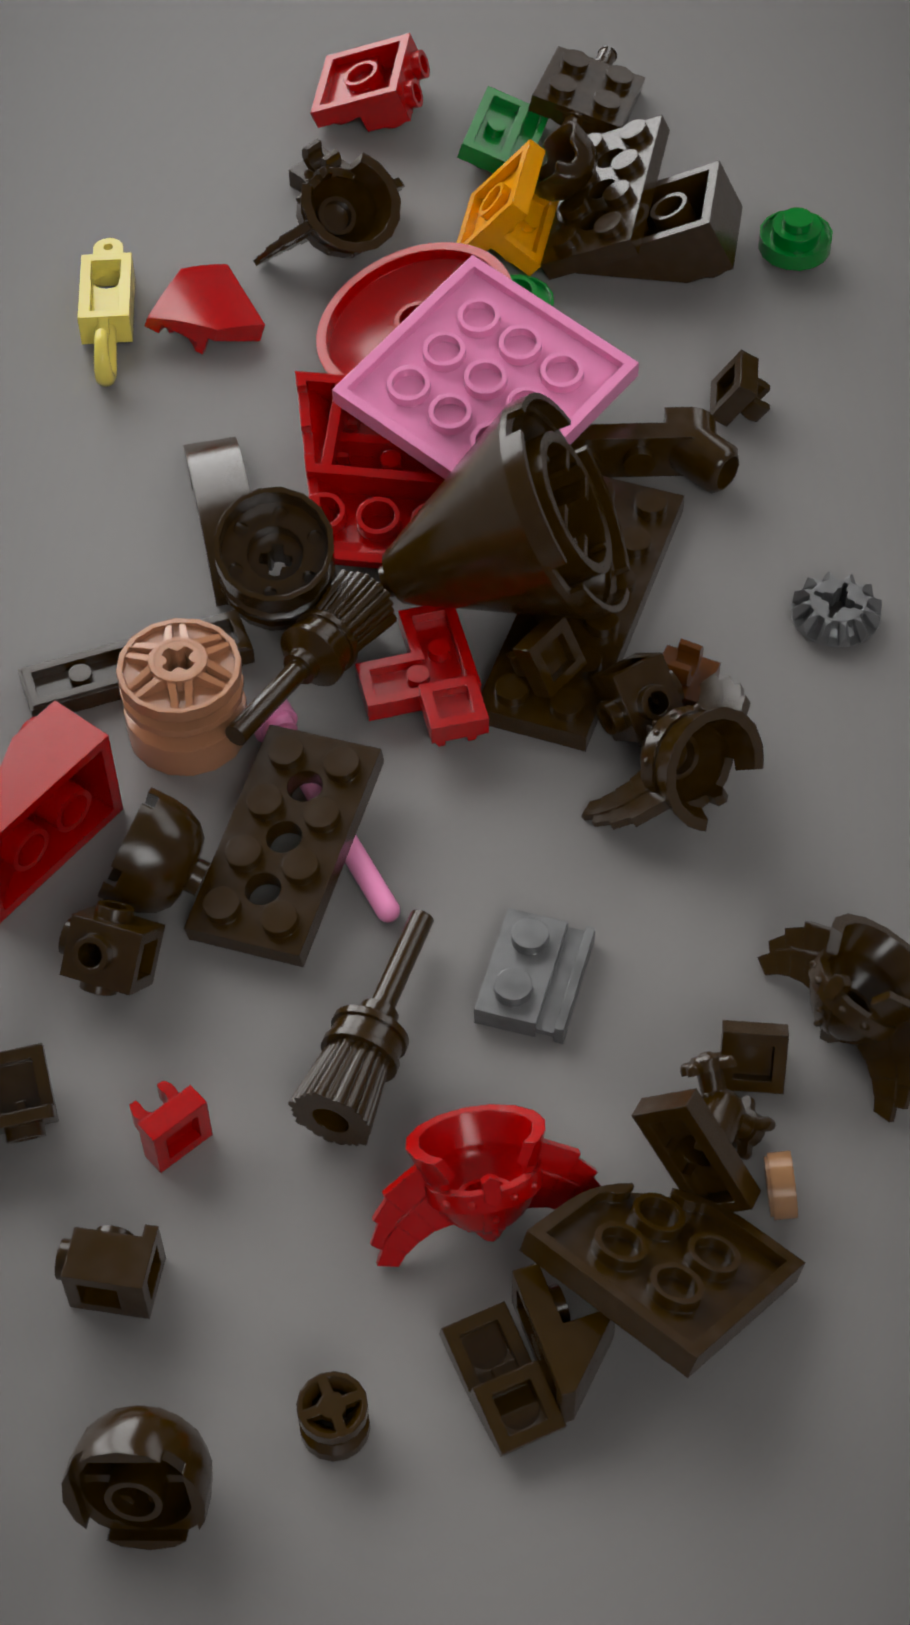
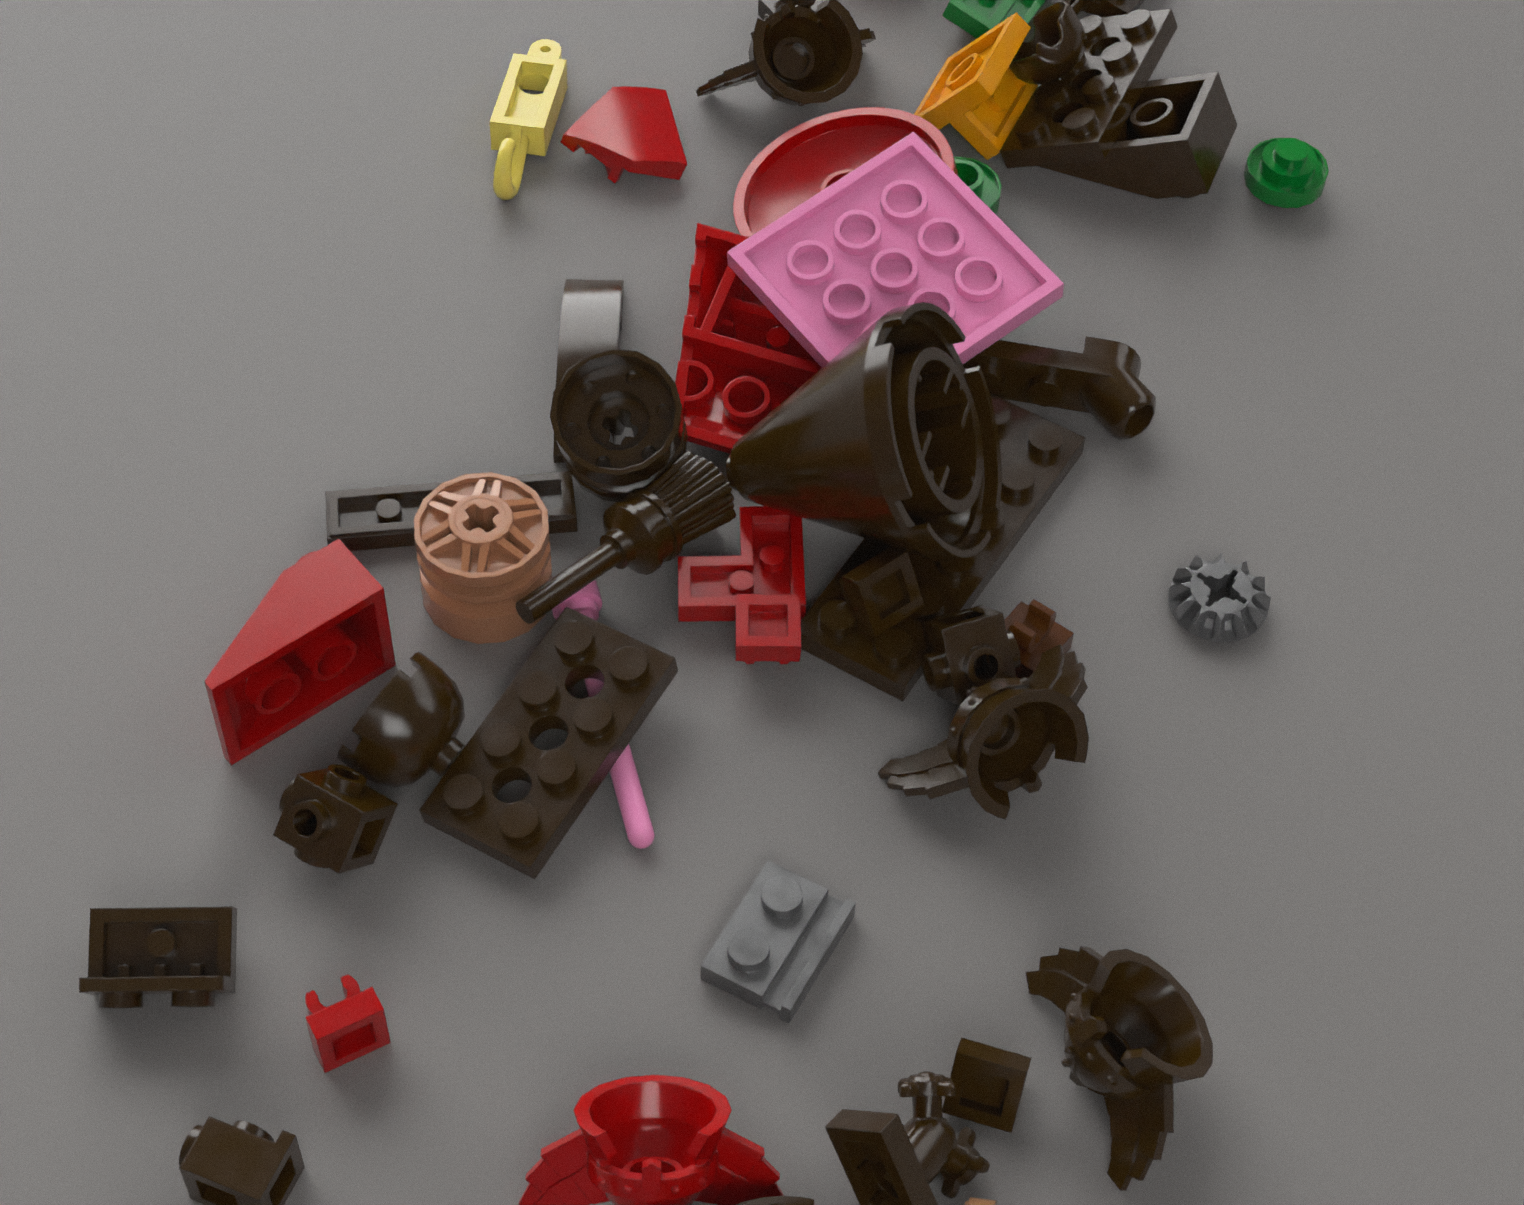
camera: 10 degrees right, 0 degrees up
(361, 1051) = (566, 986): dark brown piece -> none
(739, 391) = (1177, 331): dark brown tile -> none

